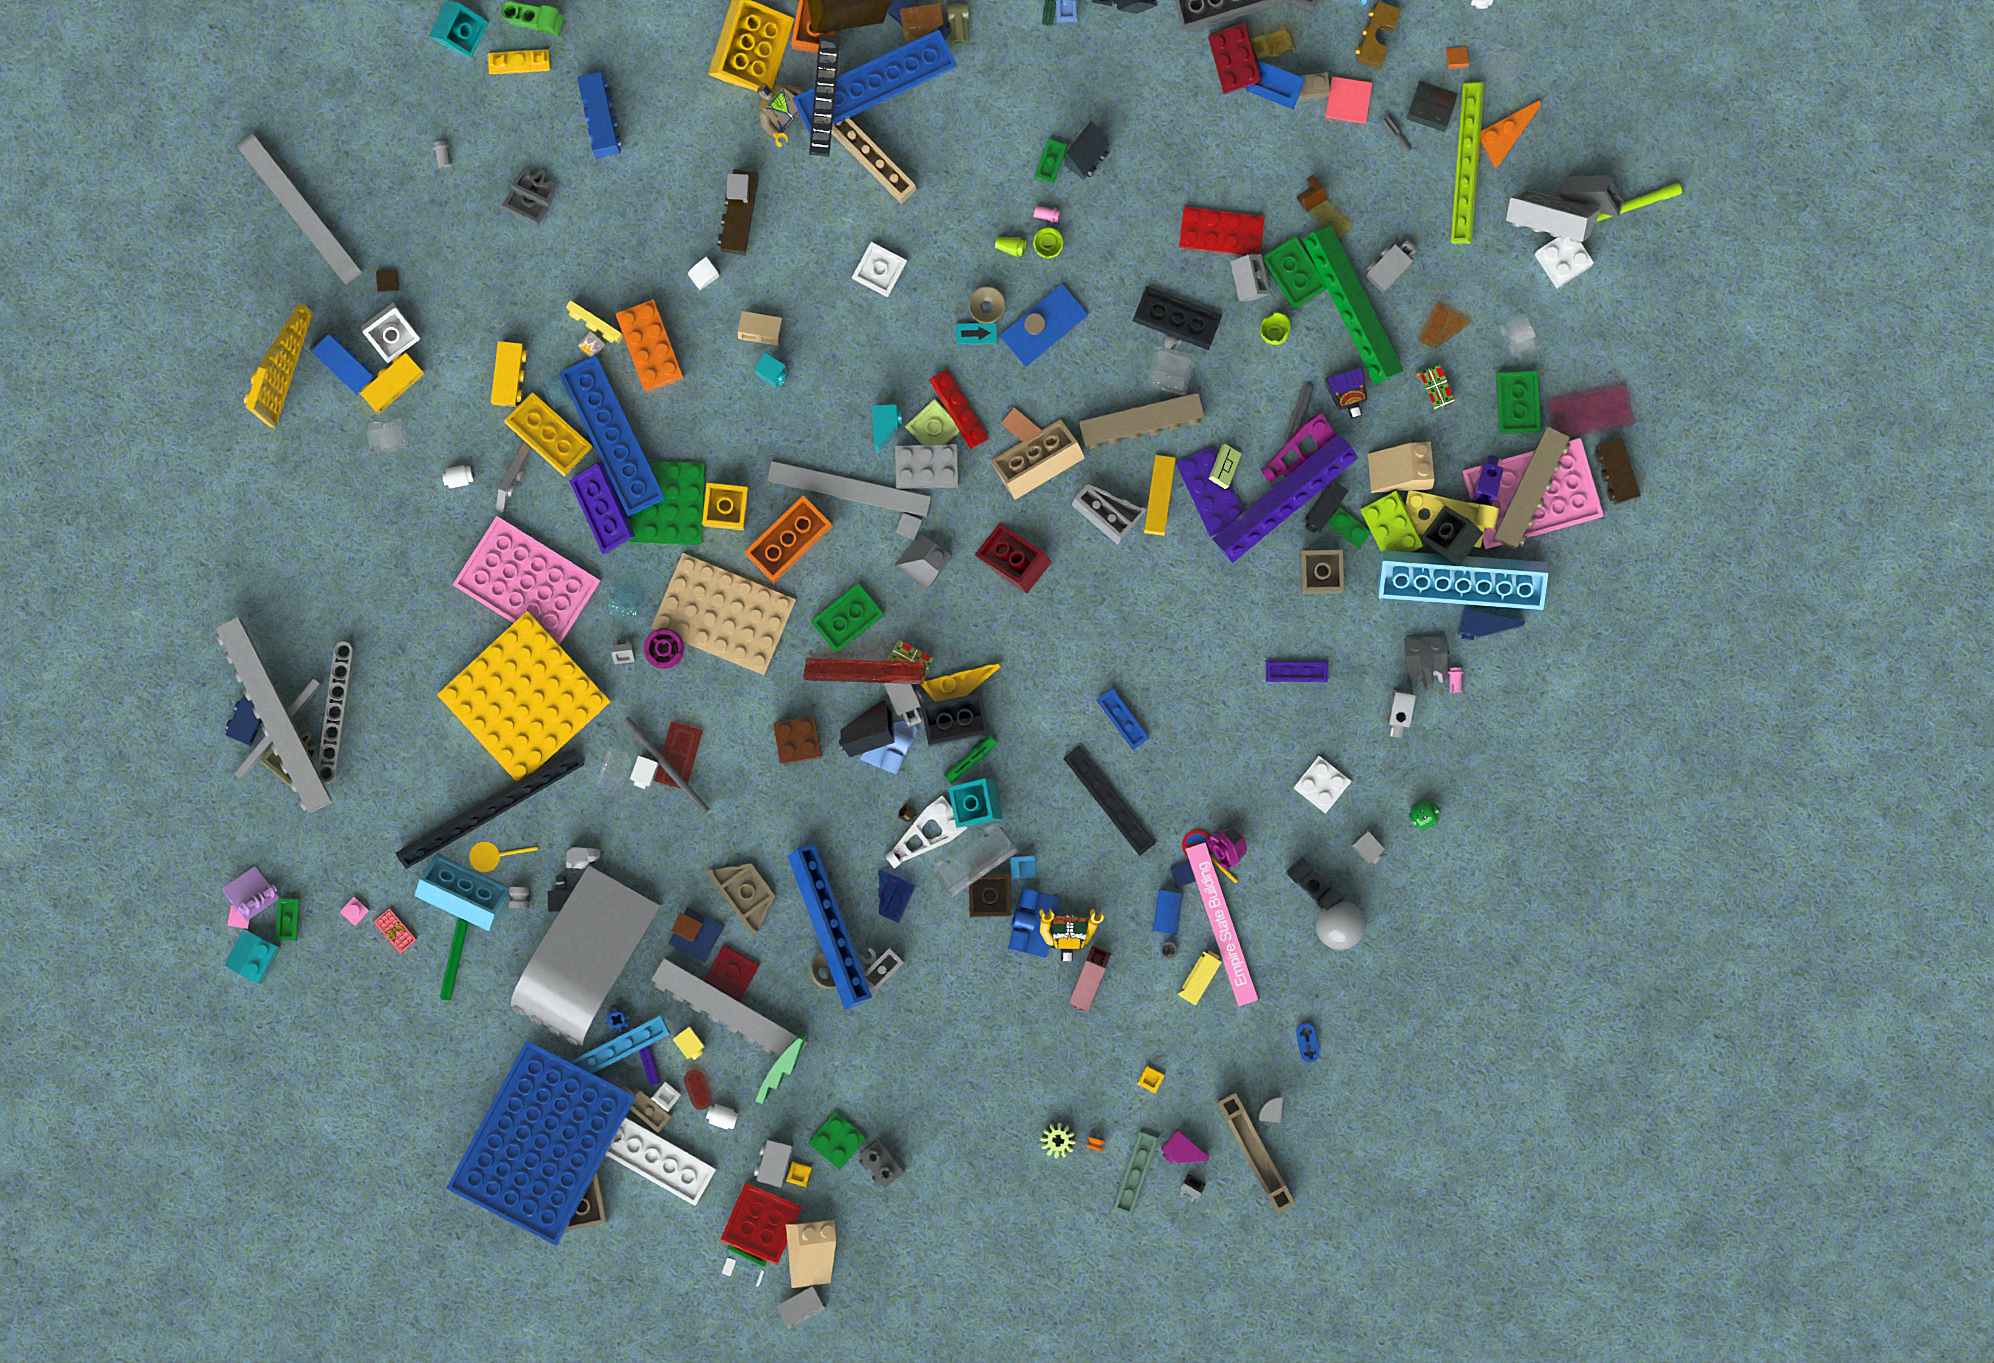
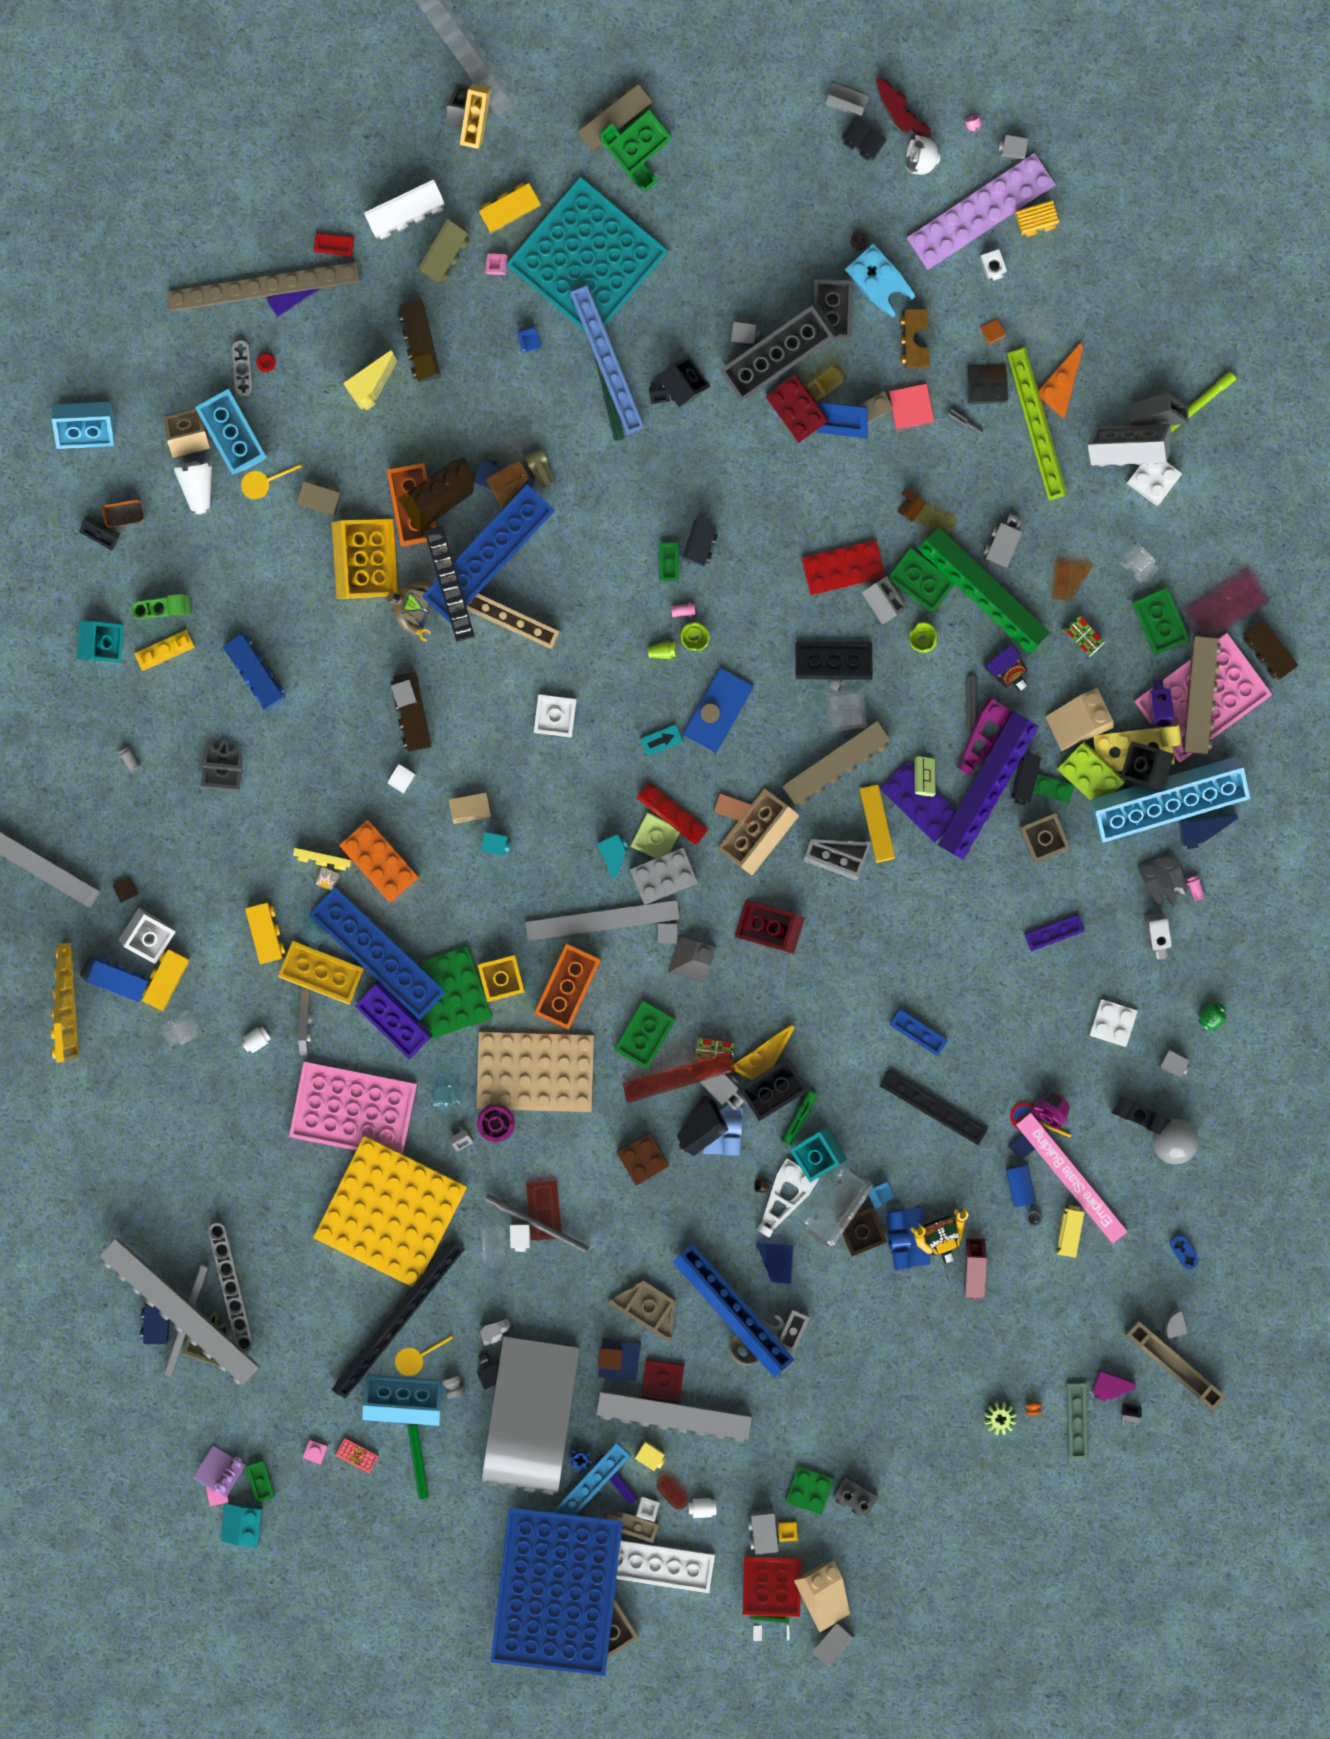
camera: 25 degrees left, 5 degrees up
(785, 1064) = (739, 1445): slope -> none
(986, 294) = (657, 702): dark tan piece -> none
(1151, 1079) = (1060, 1334): yellow tile -> none

